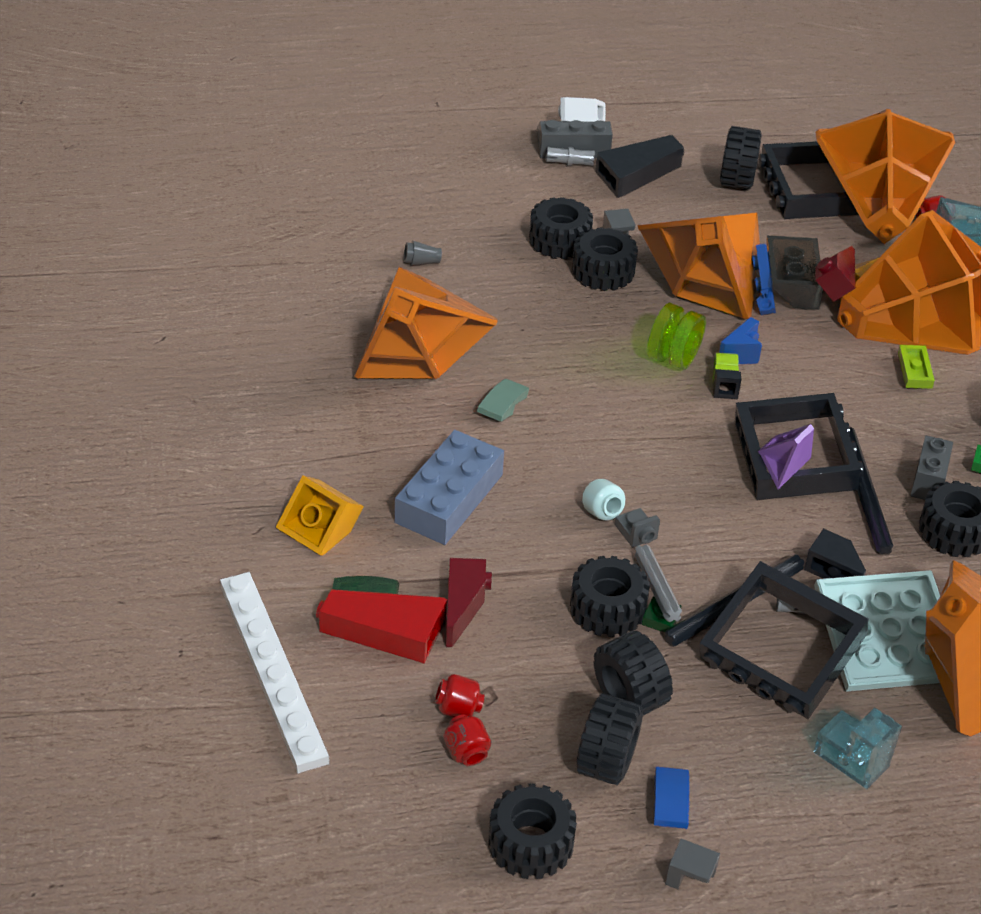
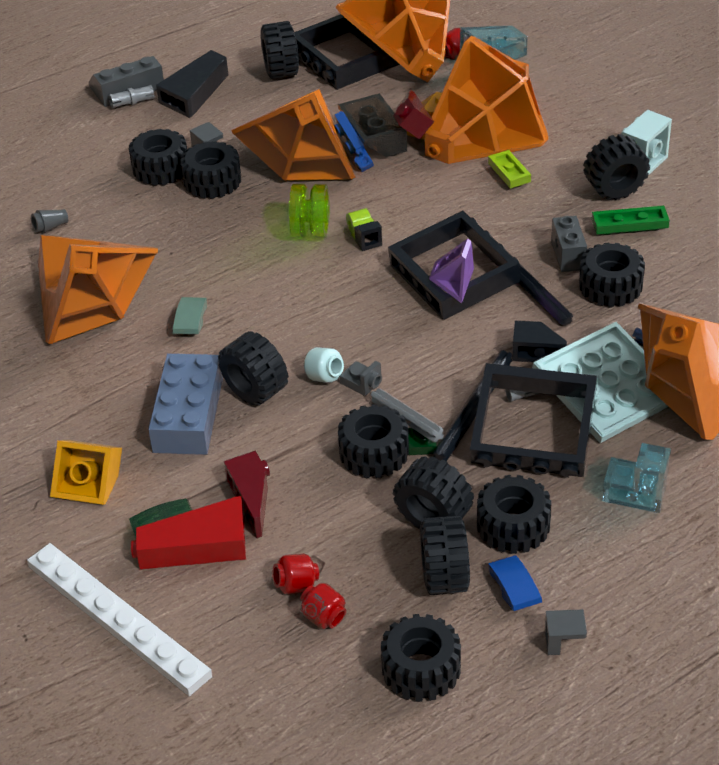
camera: 20 degrees left, 0 degrees up
(528, 476) = (253, 368): none -> black tyre
(581, 109) = (123, 53): white slope -> none
(705, 746) = (516, 530): none -> black tyre
(744, 342) = (365, 197): blue slope -> none

